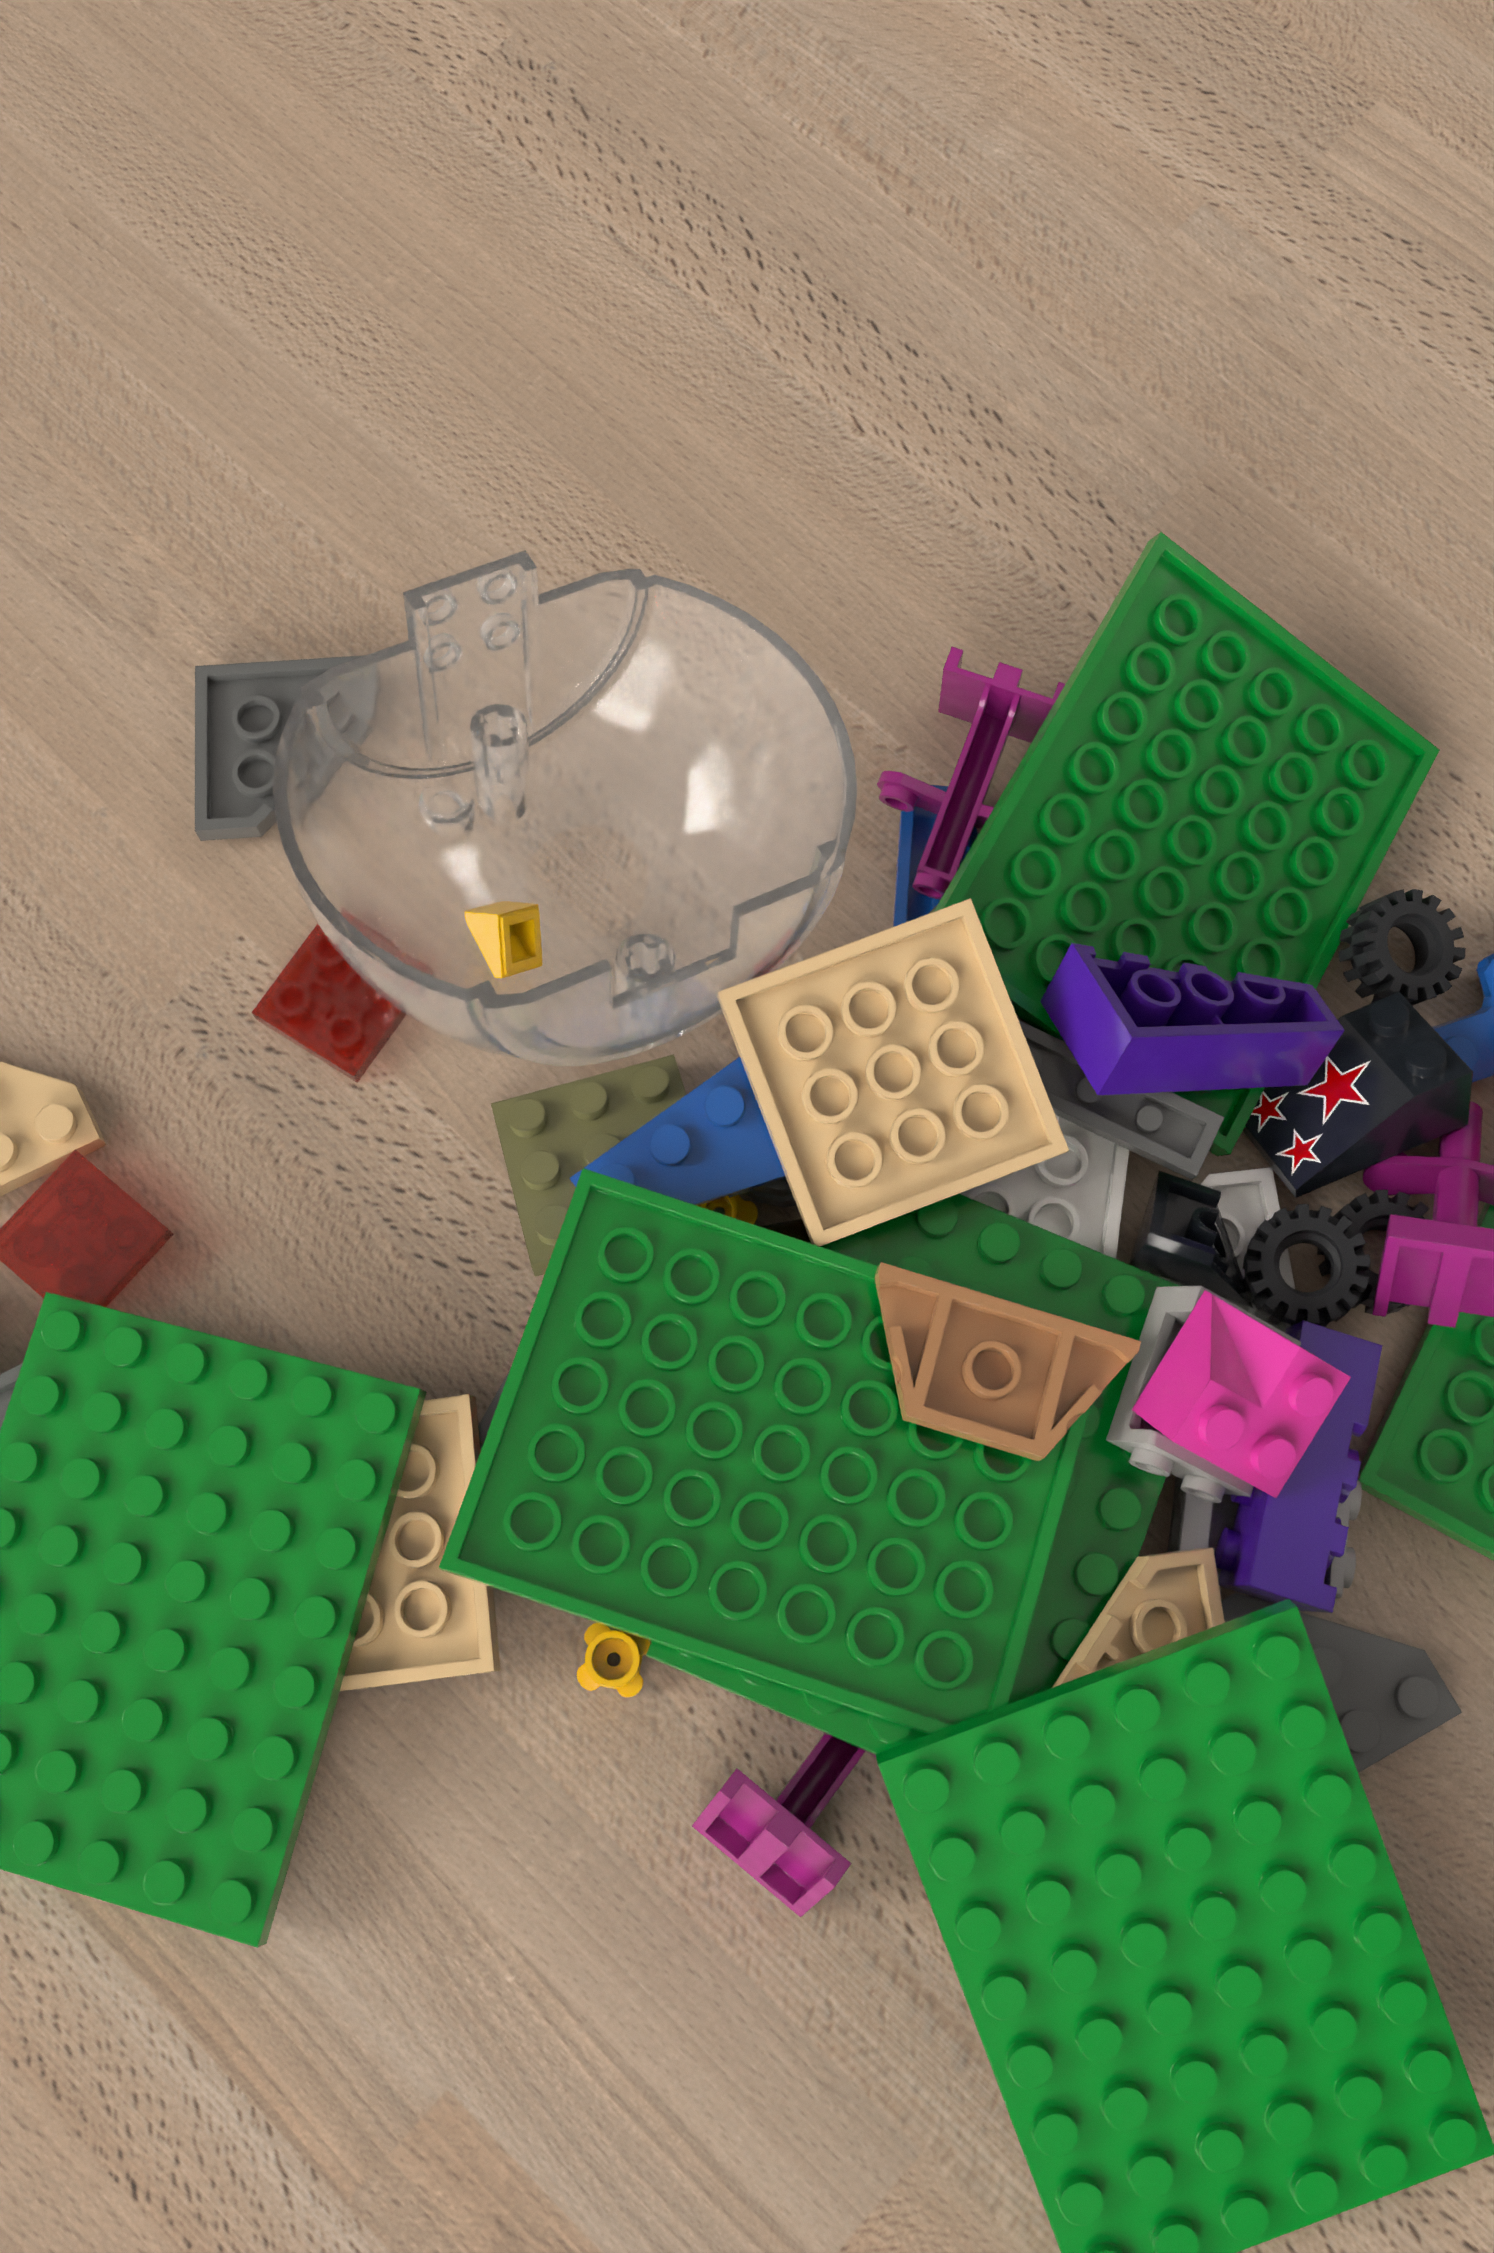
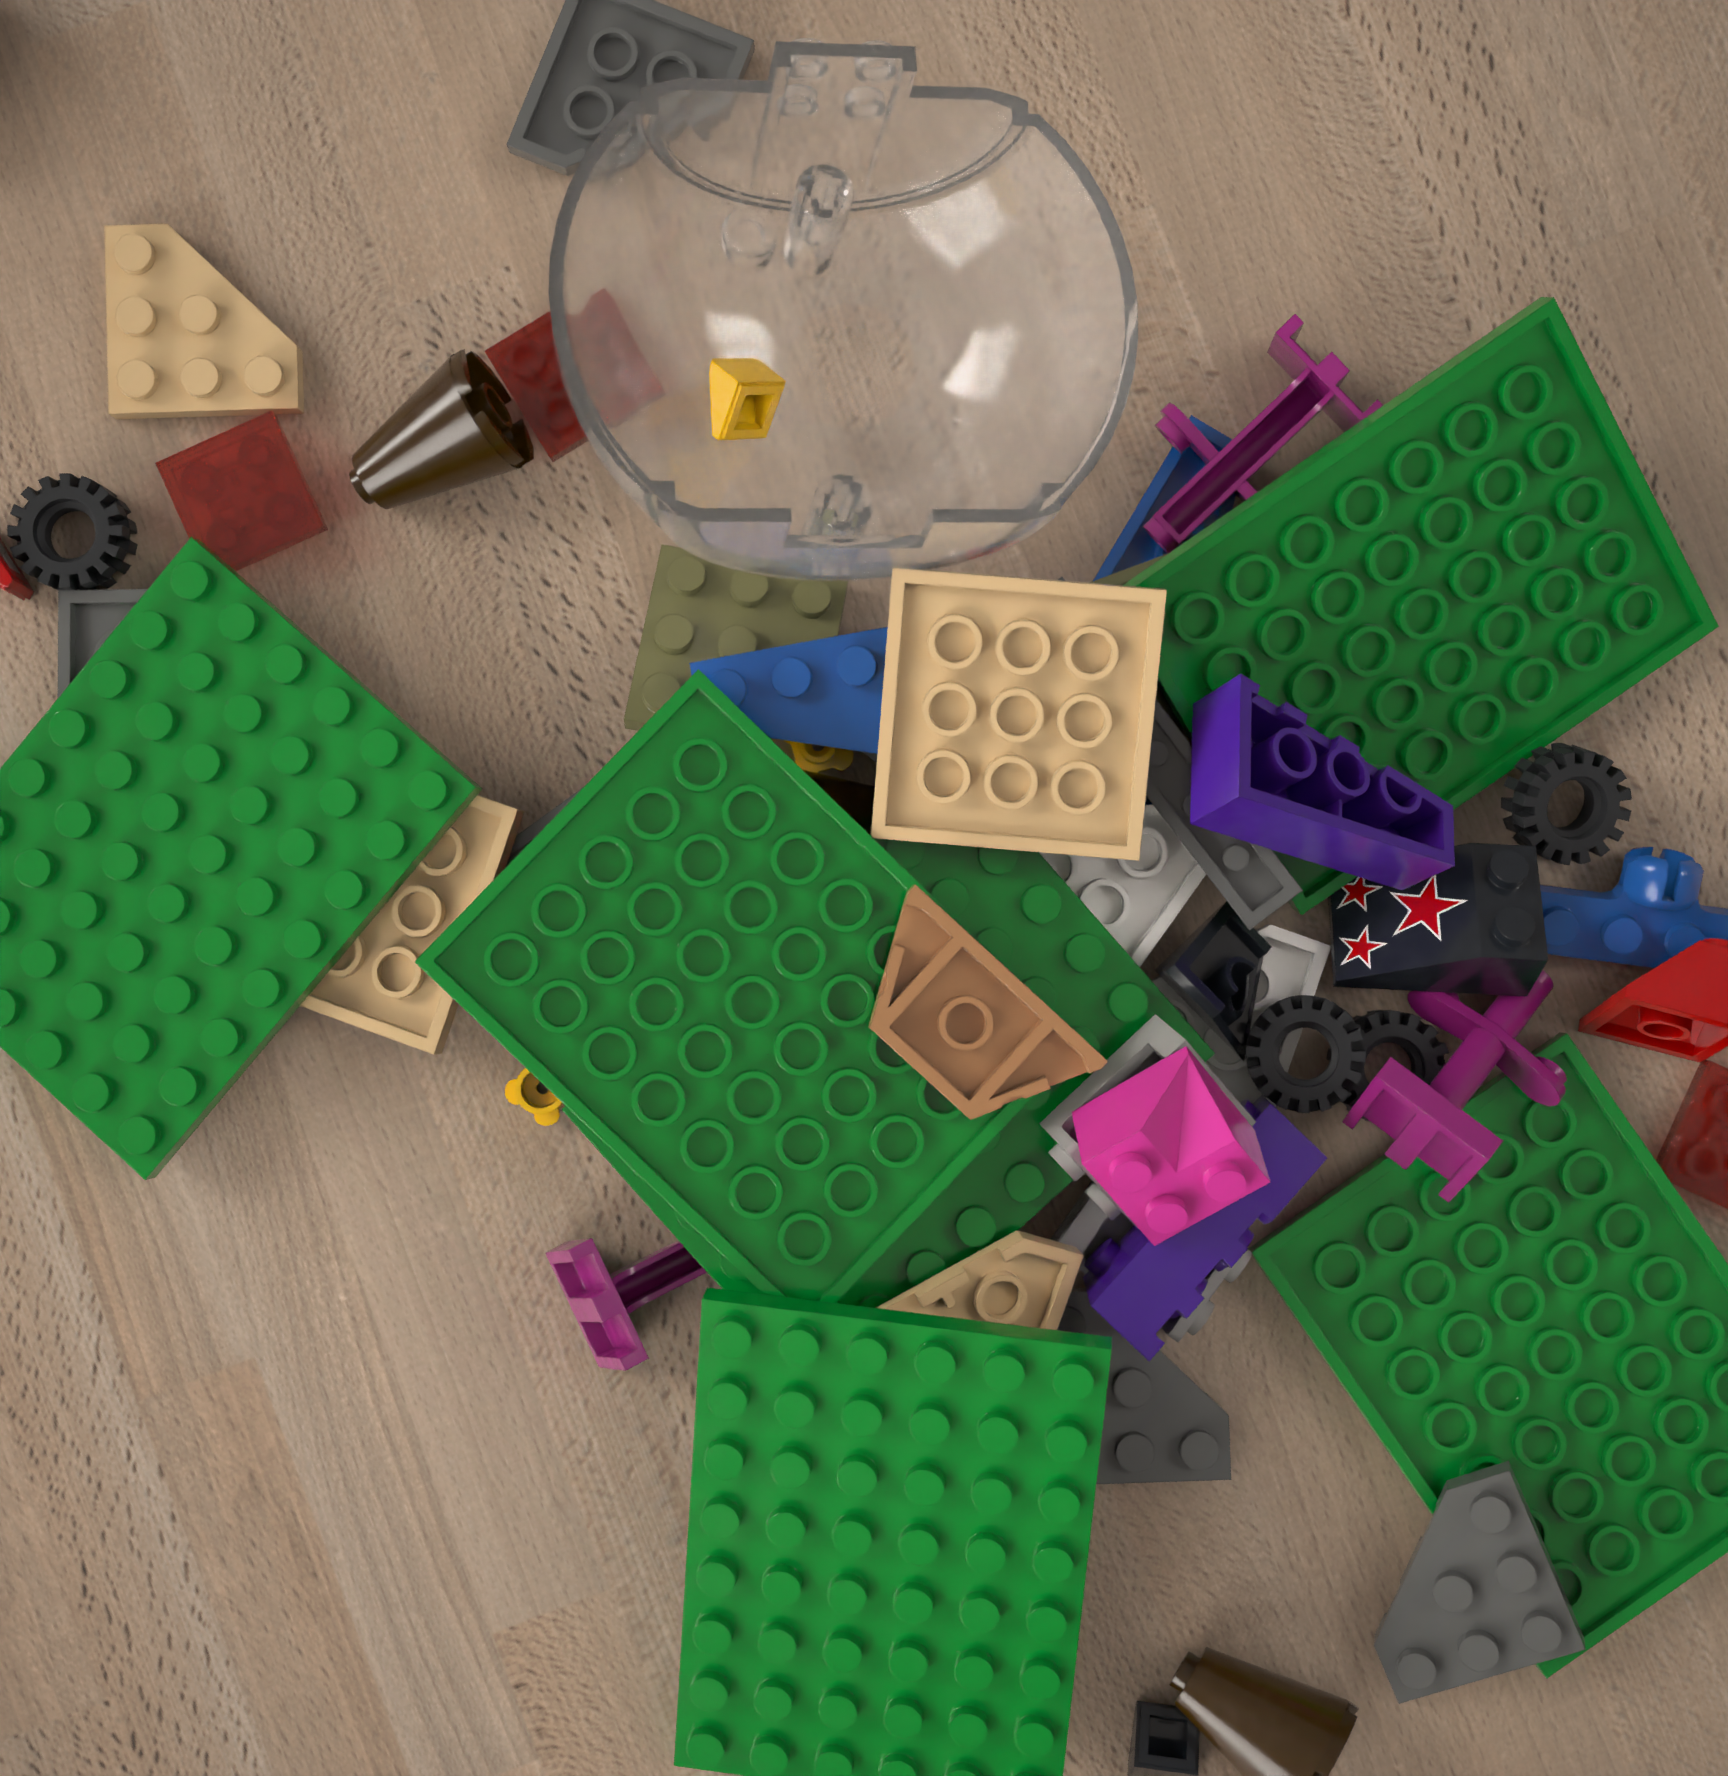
camera: 30 degrees right, 15 degrees up
(244, 1101) = (442, 437): none -> dark brown cone

